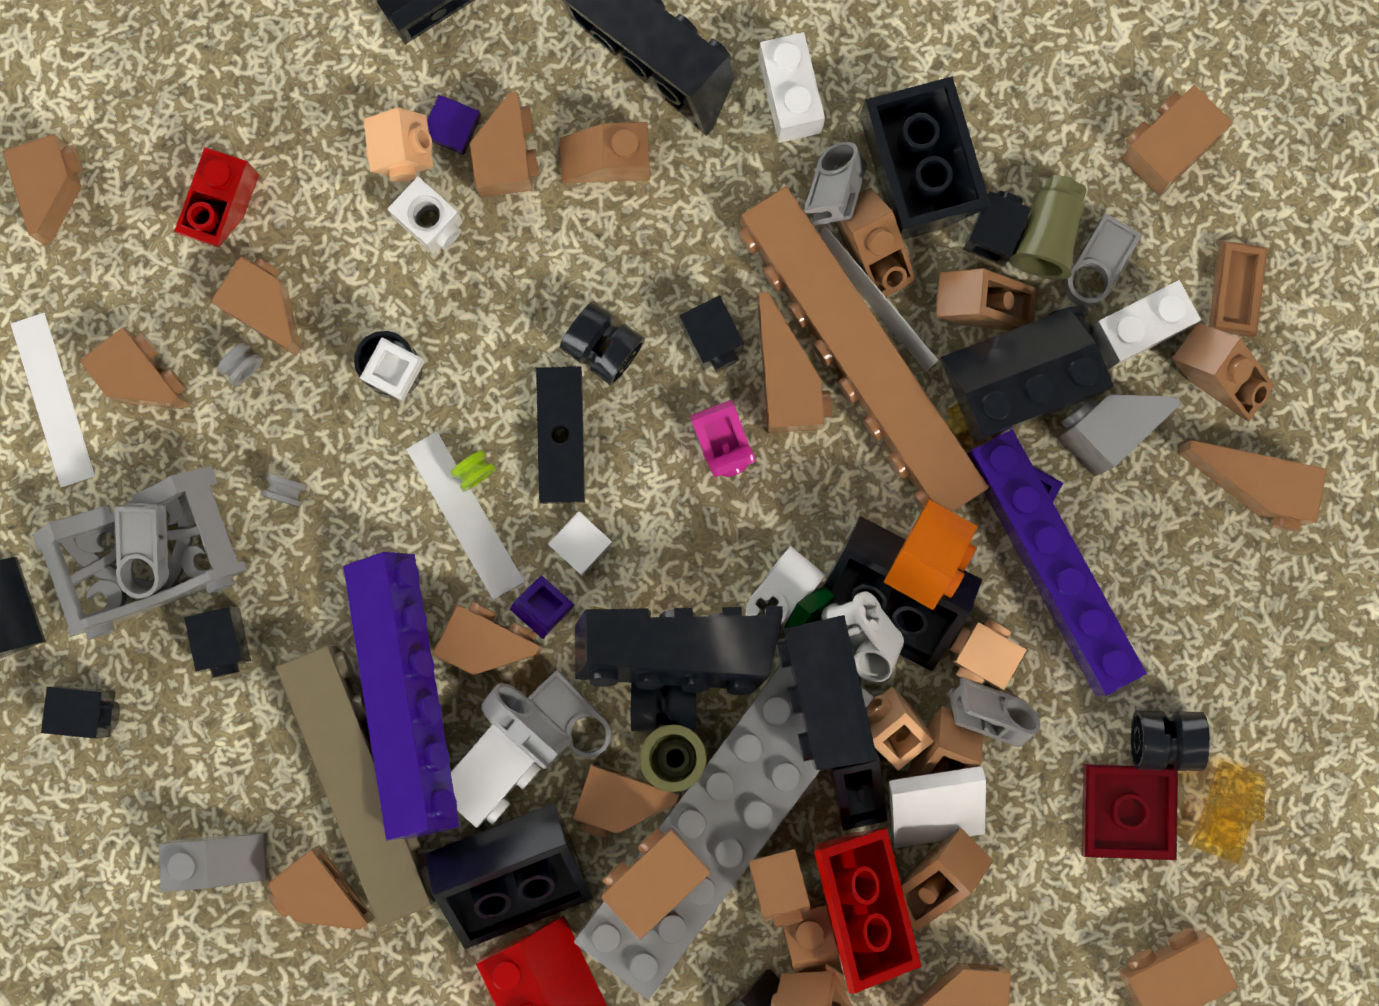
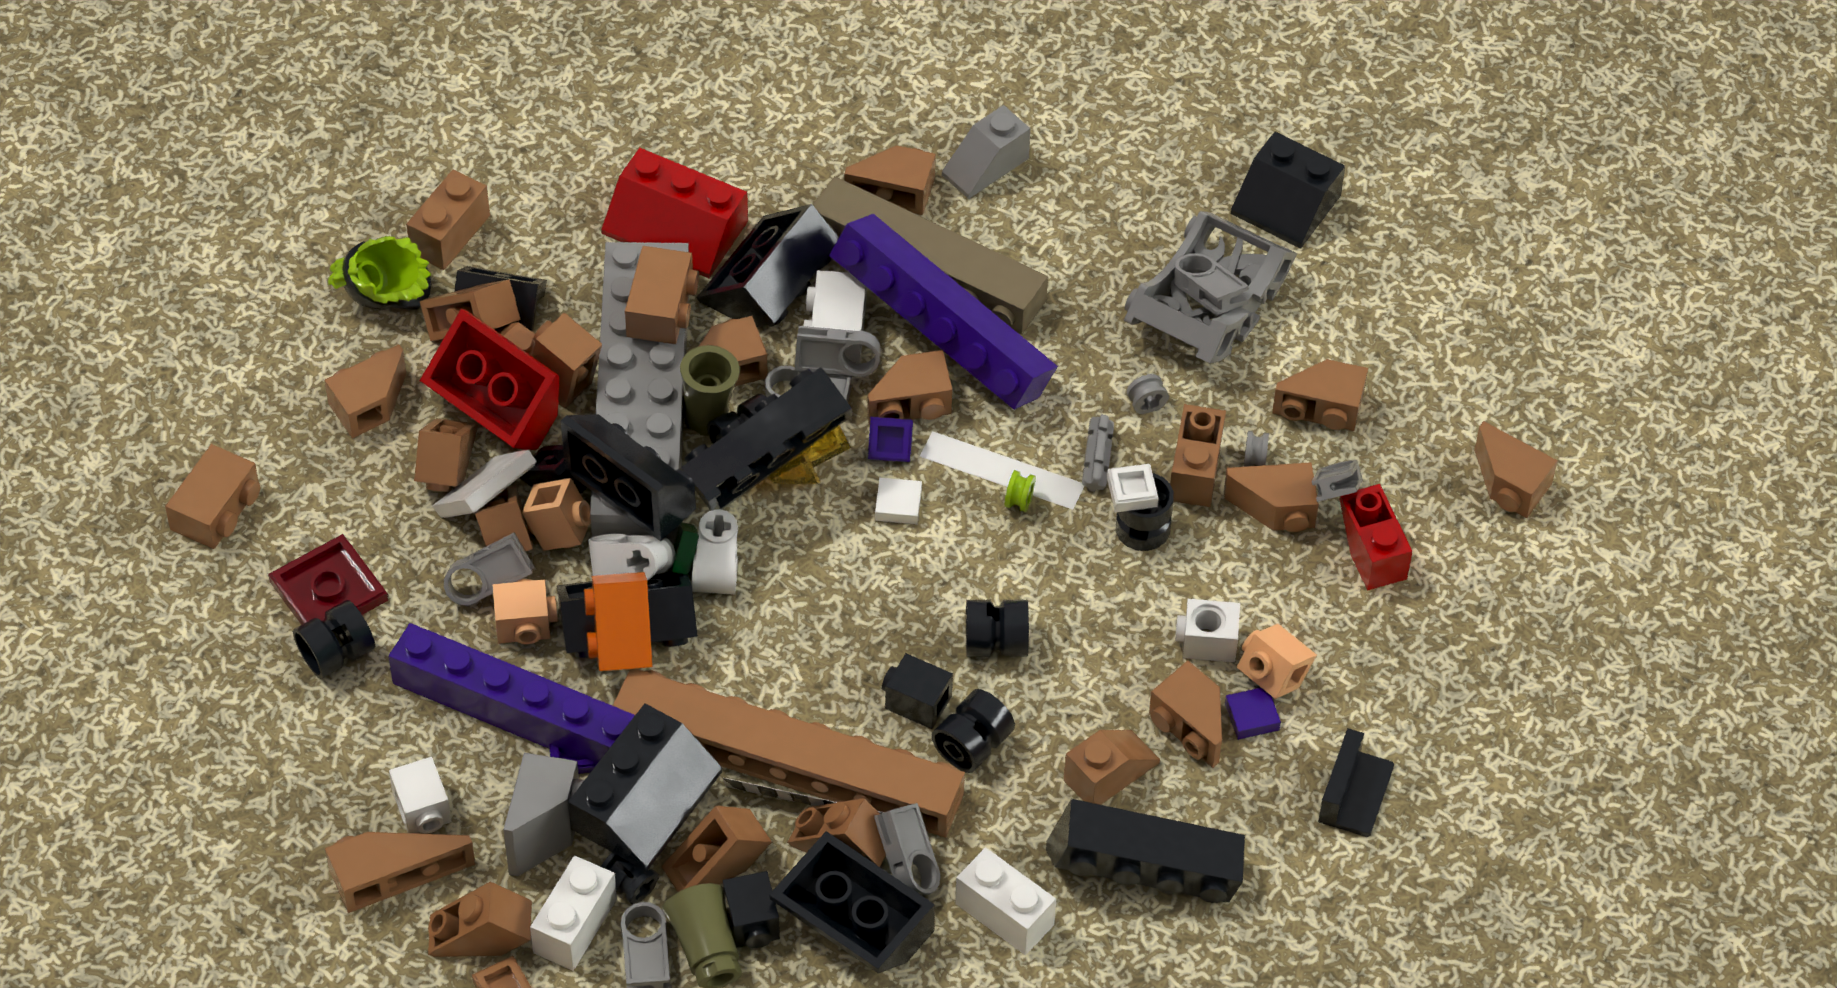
camera: 140 degrees right, 30 degrees down
(52, 400) = (1373, 355): white sticker -> none
(79, 712) = (1162, 179): black brick -> none
(207, 264) = (1337, 480): none -> light grey piece
(218, 641) = (1106, 276): black brick -> none
(295, 389) = (1197, 455): none -> medium nougat slope
(373, 465) = (1097, 453): none -> light grey axle
(560, 407) = (962, 539): black tile -> none
(698, 259) = (973, 730): none -> black wheel
(722, 439) = (846, 627): dark pink bracket -> none
(790, 380) = (827, 694): medium nougat slope -> none
(1195, 528) = (420, 796): none -> white brick
(1229, 810) = (248, 633): clear yellow slope -> none

